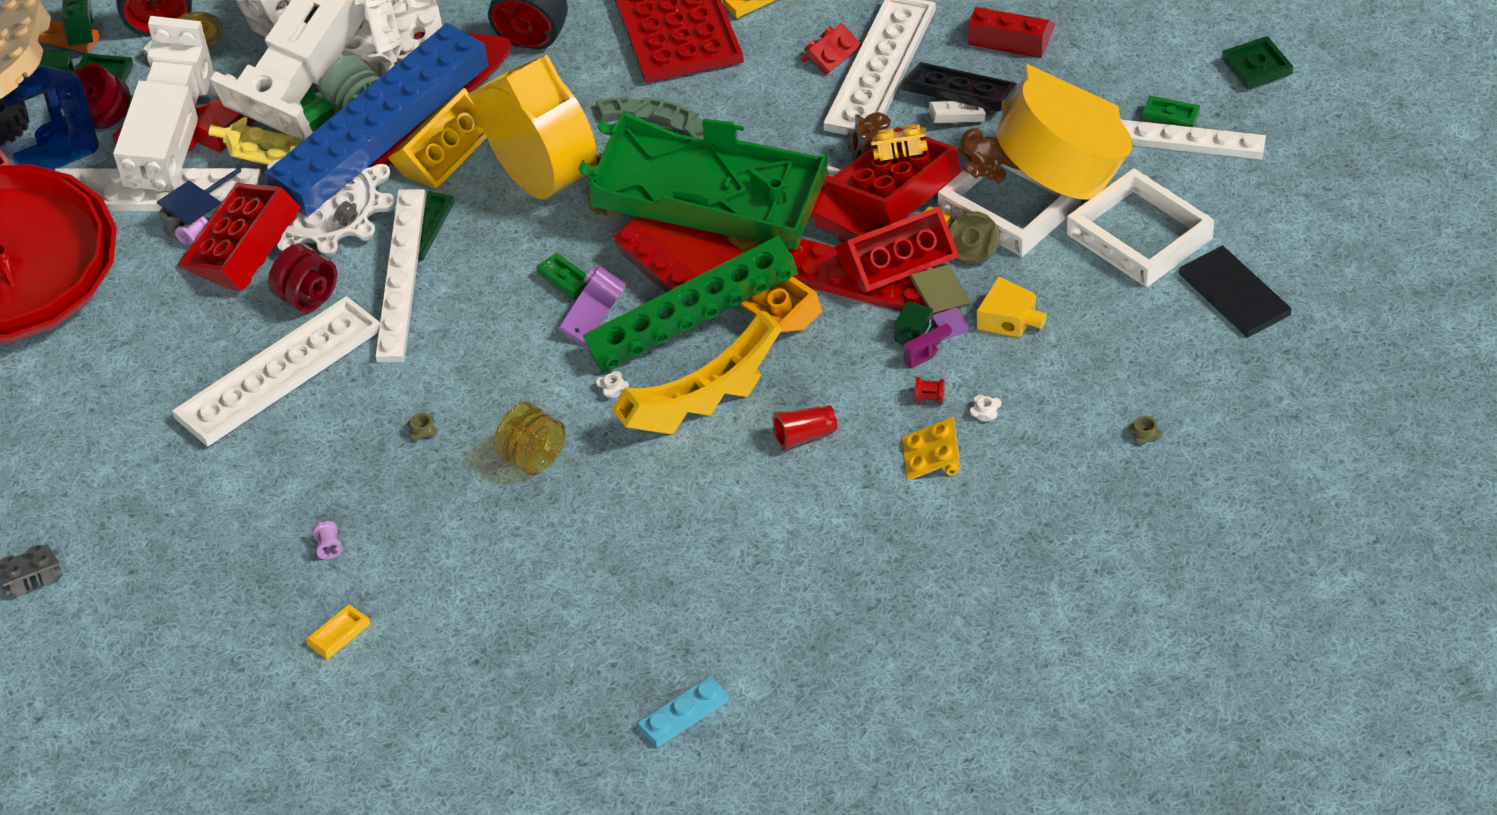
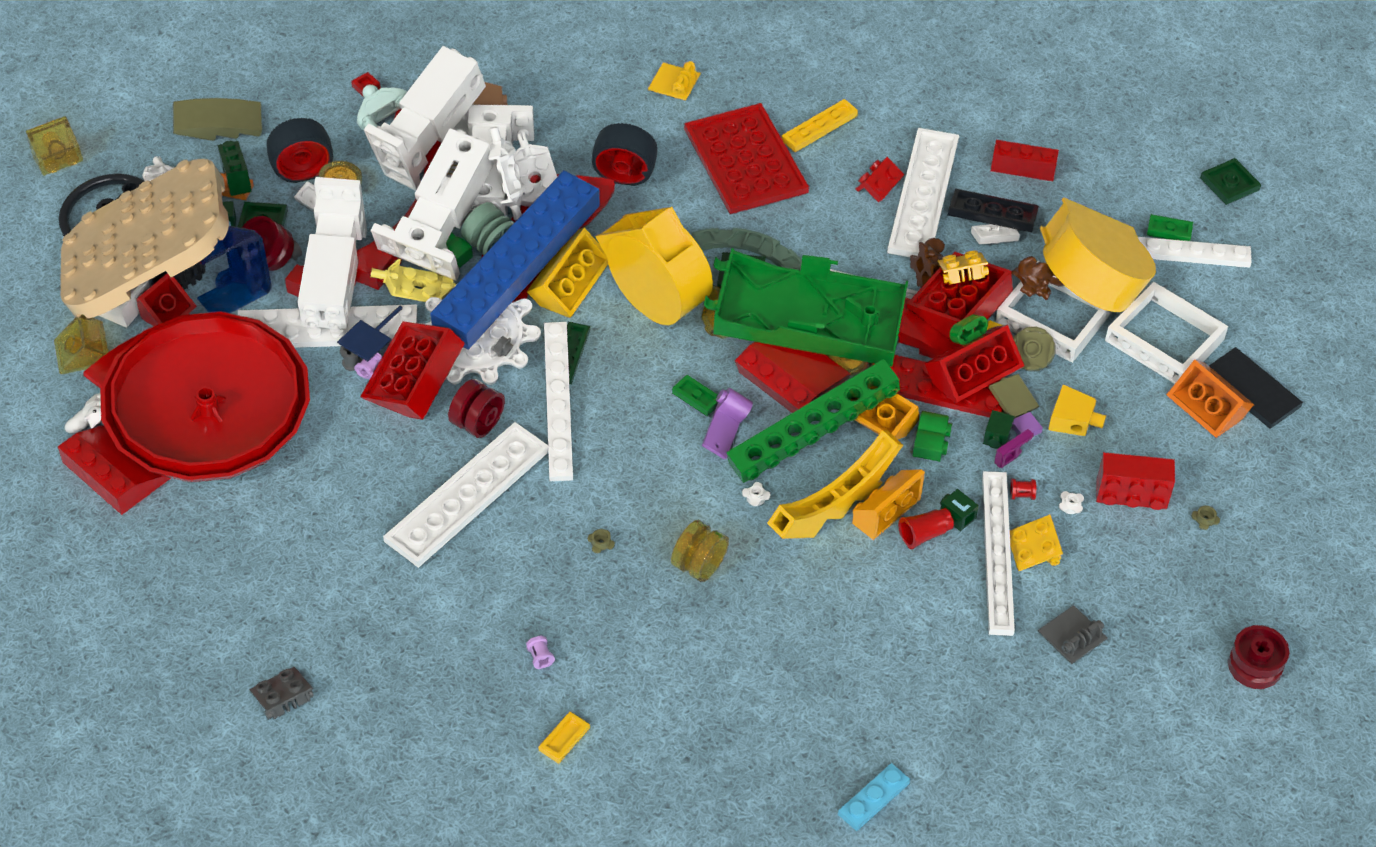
camera: 10 degrees left, 5 degrees up
(773, 392) = (889, 502): none -> light orange slope
(832, 329) = (931, 435): none -> green brick
(849, 408) = (961, 508): none -> dark green brick
(884, 459) = (997, 554): none -> white plate
(890, 203) = (967, 325): none -> green beam
(957, 549) = (1073, 634): none -> dark grey hinge
(1062, 384) = (1135, 481): none -> red brick
(1172, 581) = (1258, 657): none -> dark red wheel
(1177, 299) = (1209, 398): none -> orange slope

